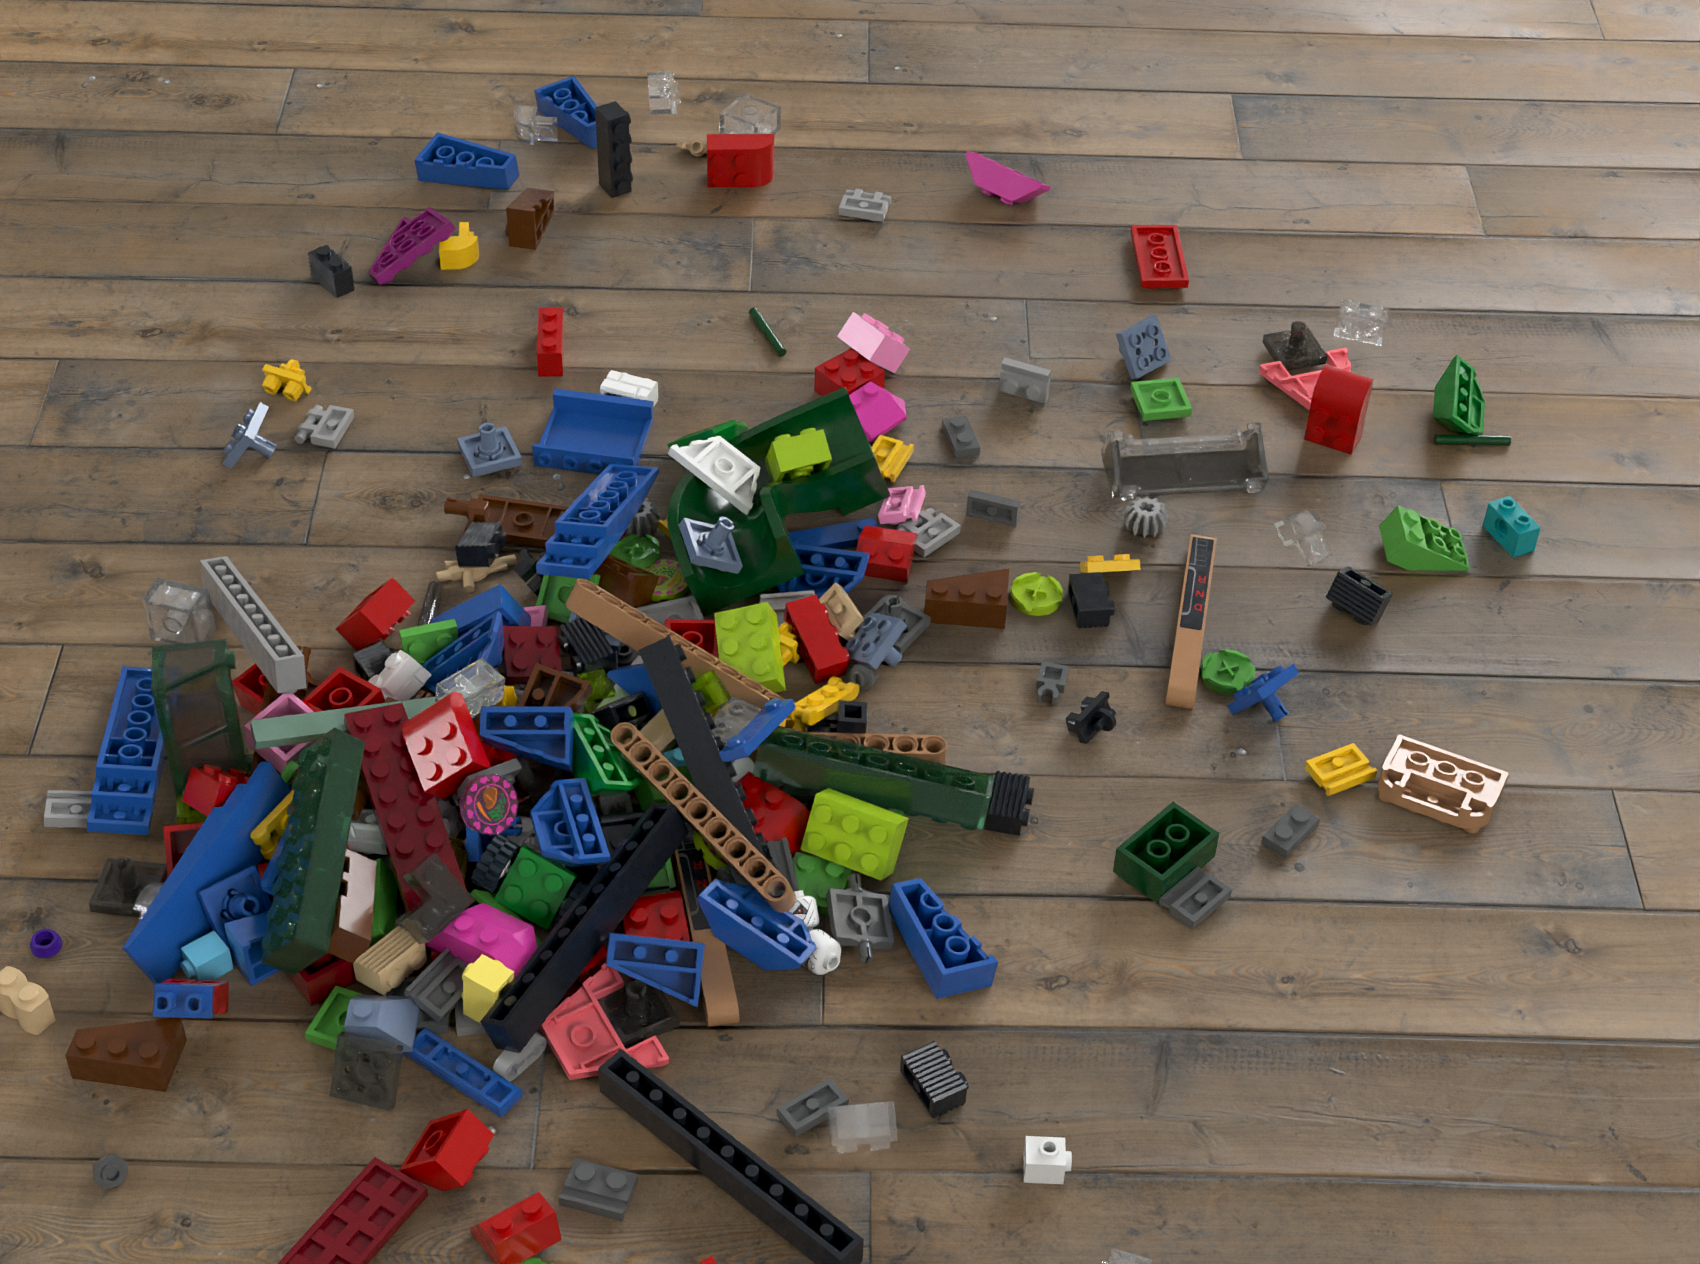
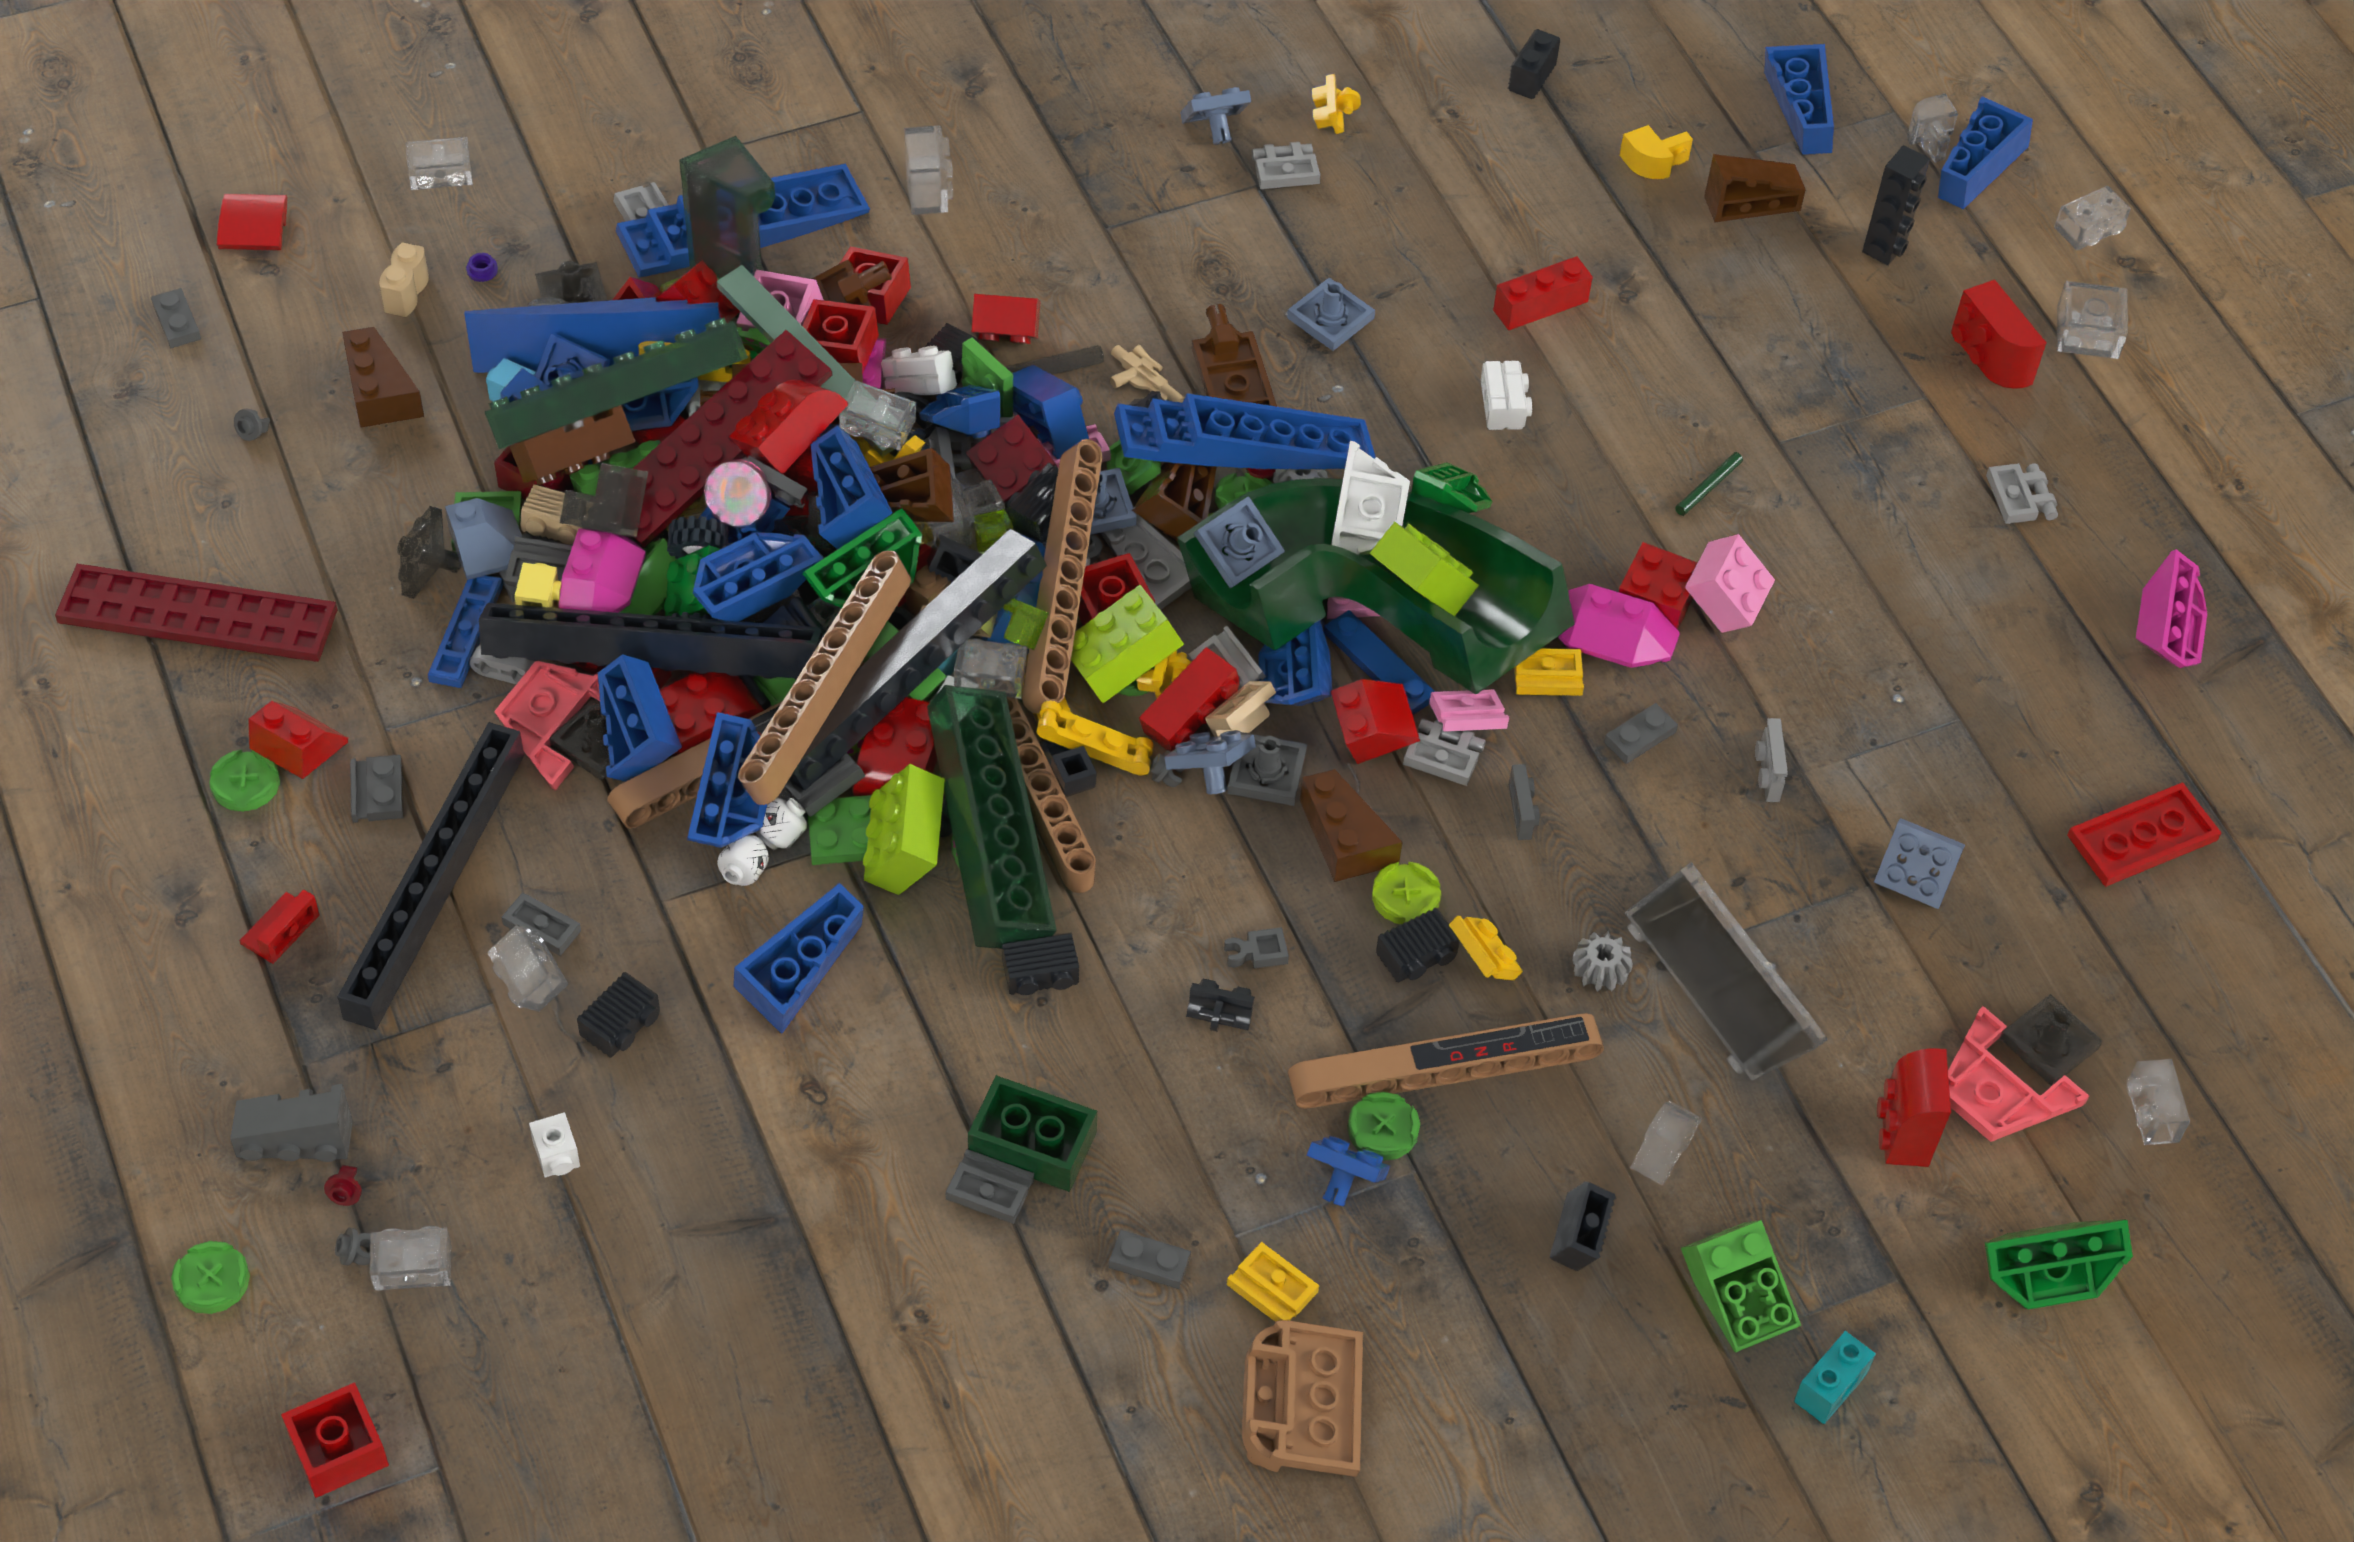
camera: 65 degrees right, 10 degrees up
(190, 998) = (442, 387): blue hips -> none
(254, 625) = (907, 219): light grey brick -> none
(409, 242) = (1625, 107): magenta wing -> none
(448, 1151) = (364, 655): red slope -> none
(480, 545) = (1168, 360): black brick -> none
(594, 431) = (1416, 394): blue panel -> none
(696, 148) = (2013, 290): tan piece -> none
(757, 730) = (926, 668): blue plate -> none
(860, 919) = (798, 877): dark grey plate -> none
(1161, 399) = (1844, 917): bright green plate -> none
(1472, 440) = (2005, 1301): dark green bar -> none

